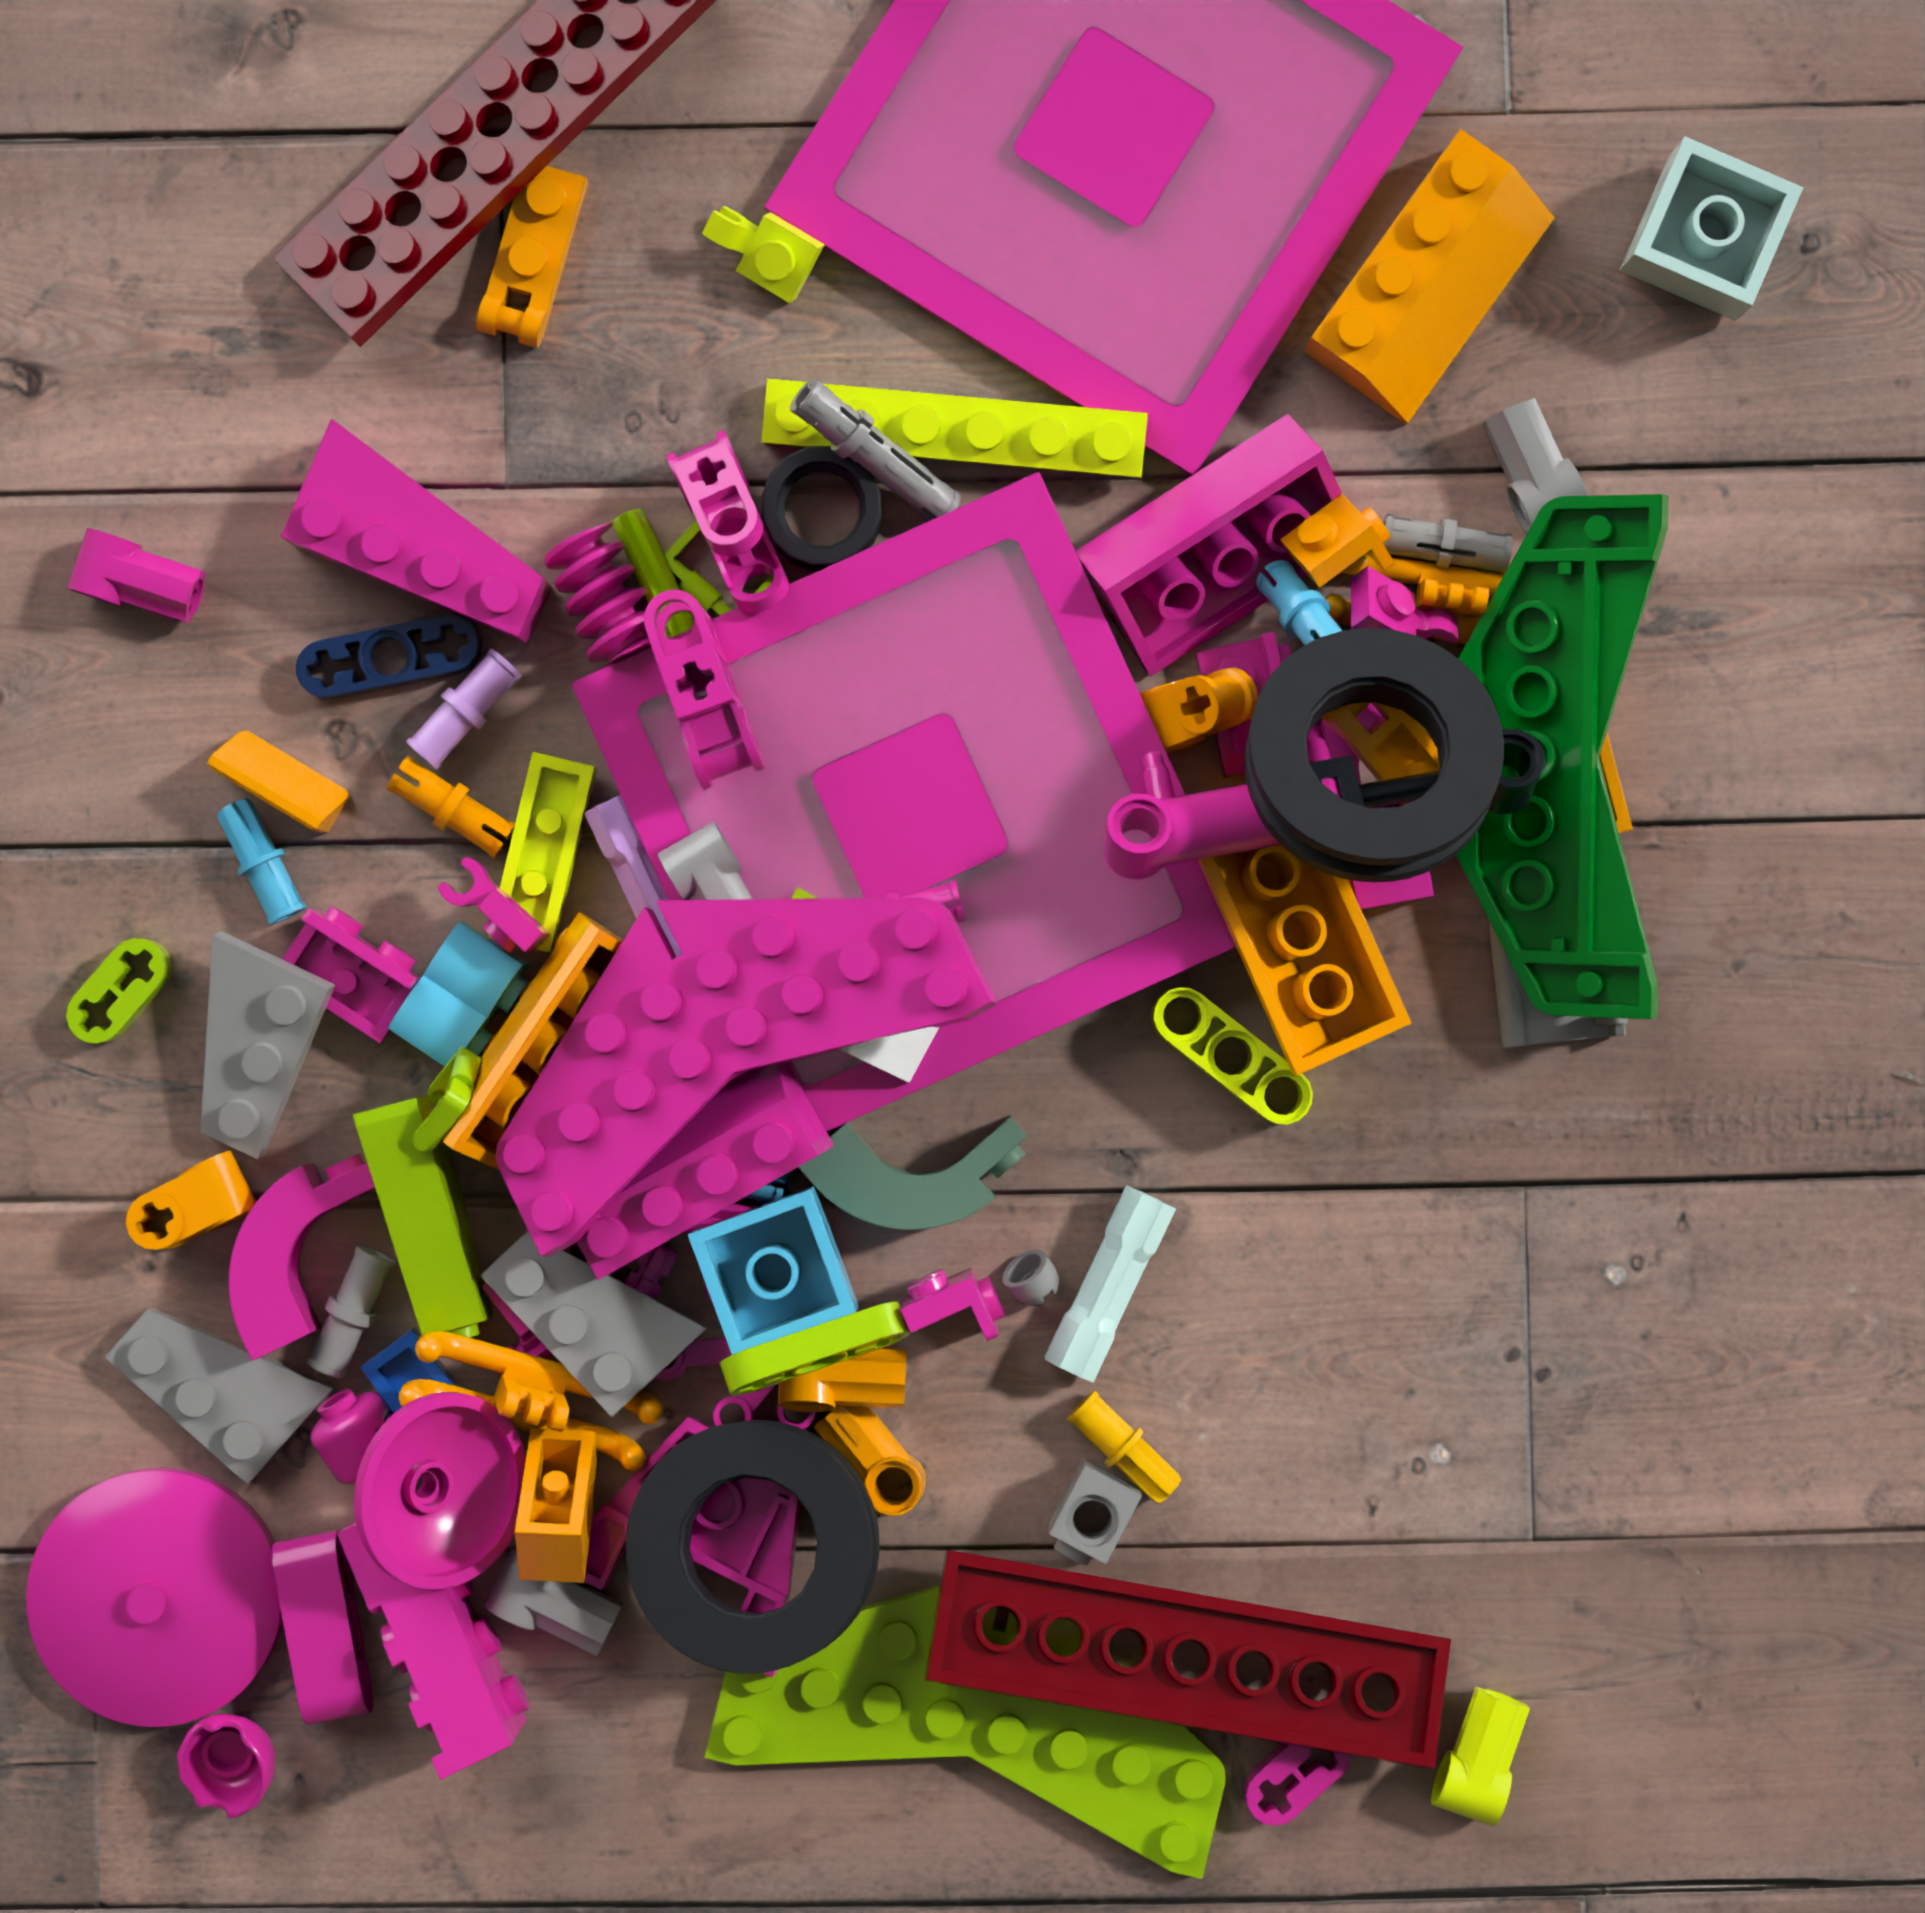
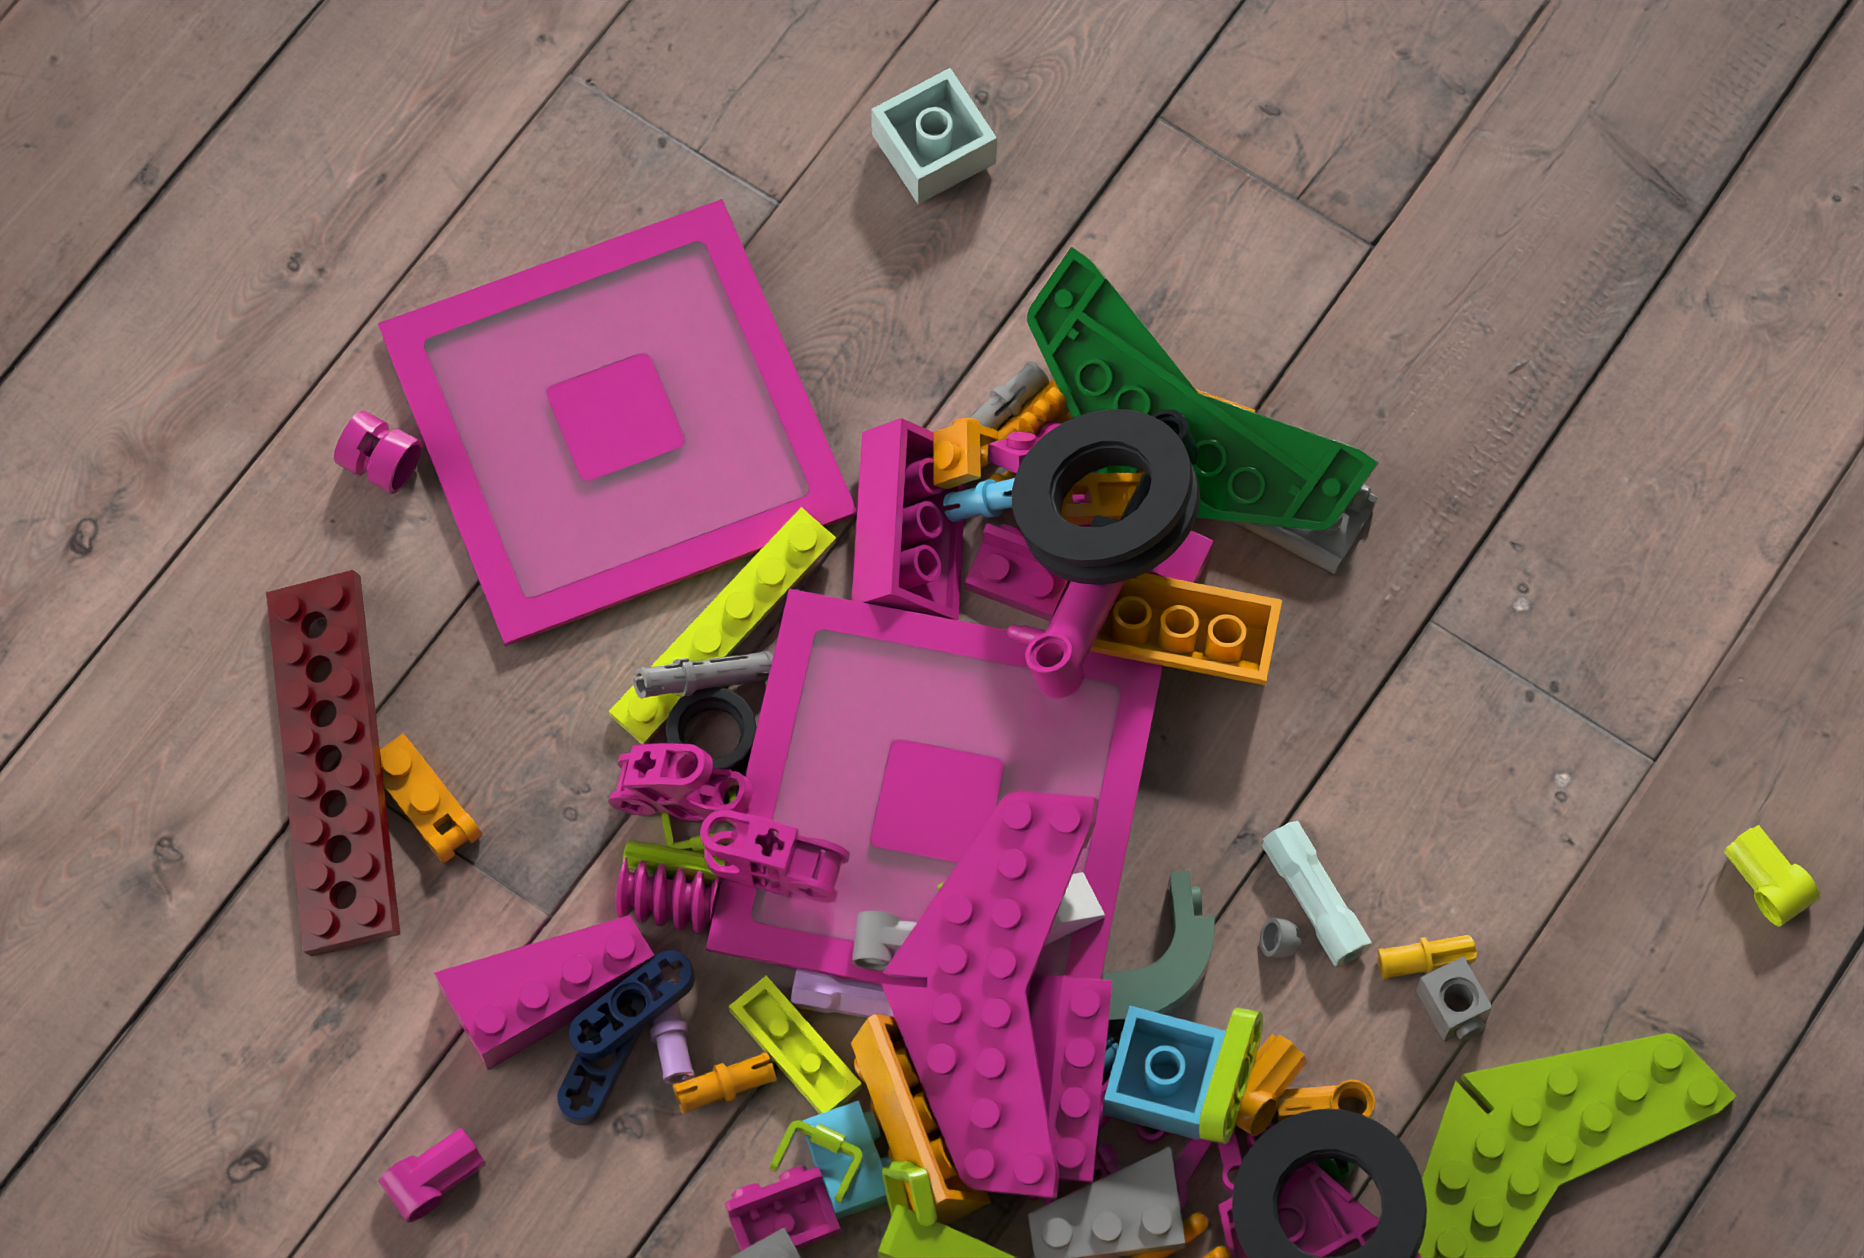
camera: 55 degrees left, 20 degrees down
(260, 861) = (668, 1225): medium azure axle -> none
(280, 781) = (629, 1180): light orange slope -> none
(414, 622) = (630, 1026): none -> dark blue beam
(451, 968) = (827, 1139): none -> lime piece
(507, 920) = (823, 1084): dark pink plate -> none
(774, 252) = (536, 657): neon yellow plate -> none
(939, 1297) = (1268, 969): dark pink bracket -> none
(1200, 706) = (1000, 604): light orange piece -> none
(1221, 1627) = (1591, 1032): dark red plate -> none
(1262, 1062) = (1241, 710): neon yellow beam -> none
(1300, 1791) = (1695, 997): dark pink beam -> none
(1431, 278) = (842, 305): light orange slope -> none
(1530, 460) = (995, 323): light grey piece -> none

